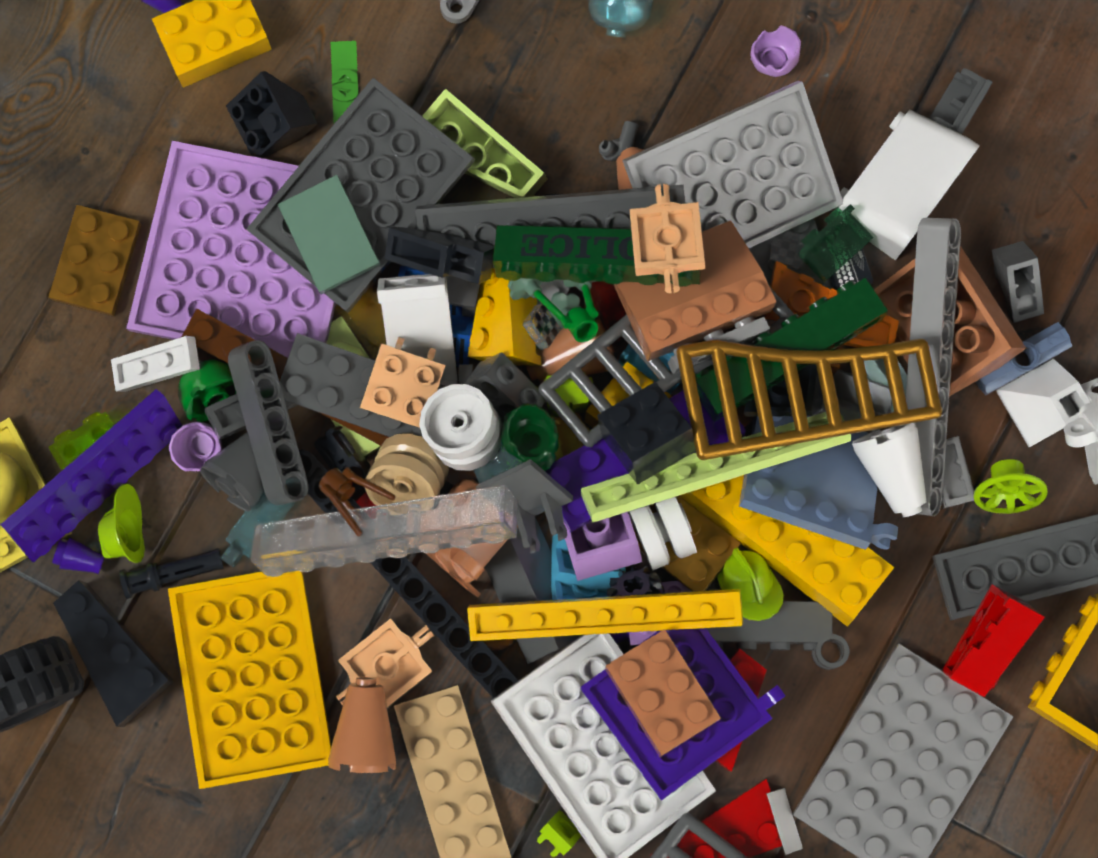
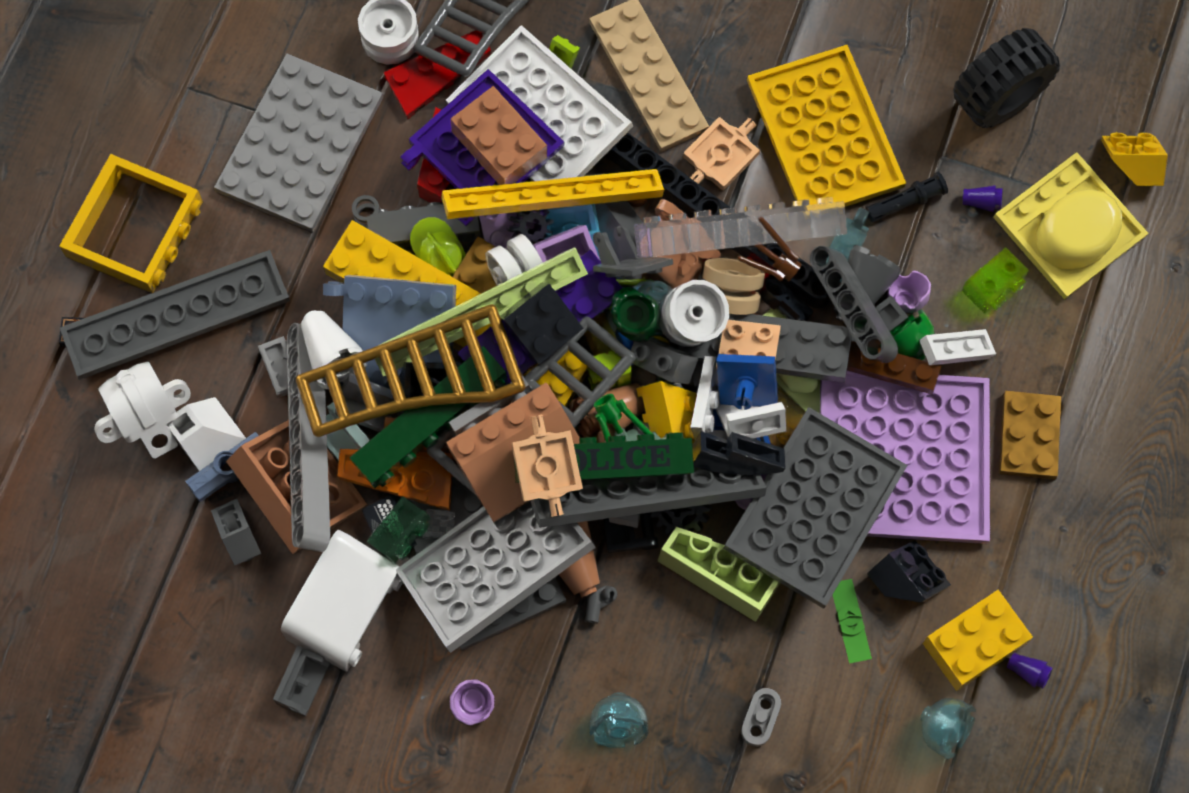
camera: 175 degrees right, 10 degrees down
(93, 476) = (985, 247): dark purple plate -> none
(114, 658) = (939, 130): black wedge -> none
(122, 527) = (952, 220): lime piece -> none
(329, 234) = (835, 464): sand green tile -> none
(363, 730) = (728, 92): nougat cone -> none
(413, 339) = (747, 380): none -> blue tile
(462, 335) = (706, 399): none -> white plate
(541, 326) = (644, 414): clear tile -> none
(784, 821) = (389, 88): white sticker -> none
(991, 640) = (236, 233): red wedge -> none
(1009, 484) = (231, 359): lime wheel -> none

